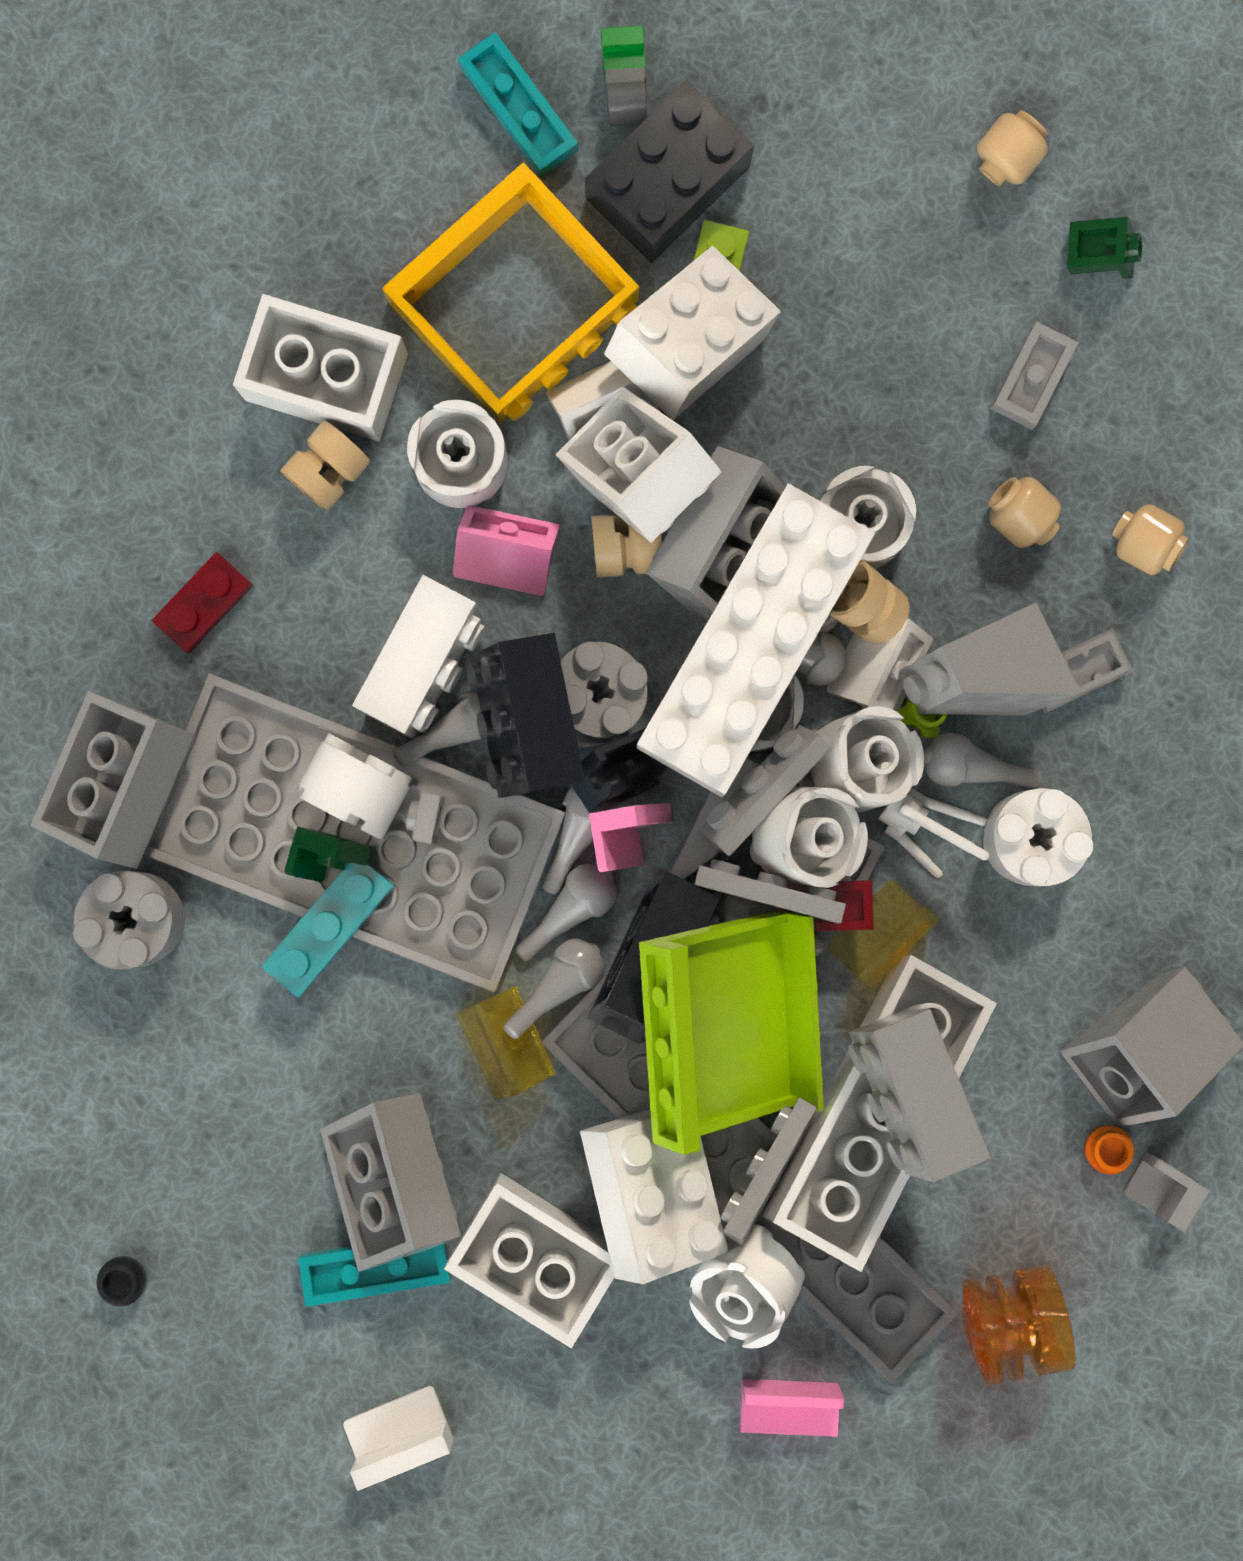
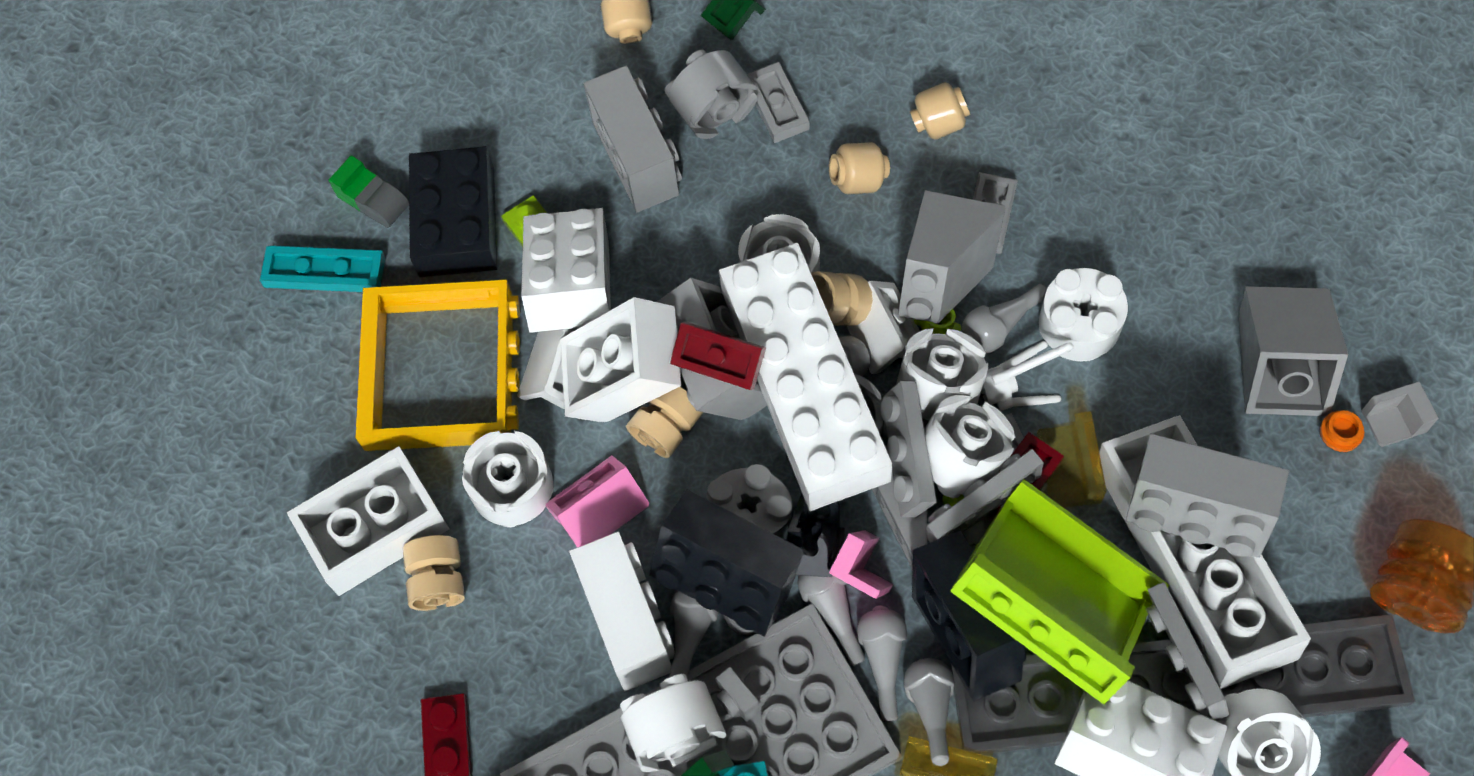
camera: 40 degrees left, 20 degrees down
(699, 555) = (718, 355): none -> dark red plate
(878, 275) = (633, 138): none -> light grey brick
(988, 308) = (711, 92): none -> light grey brick

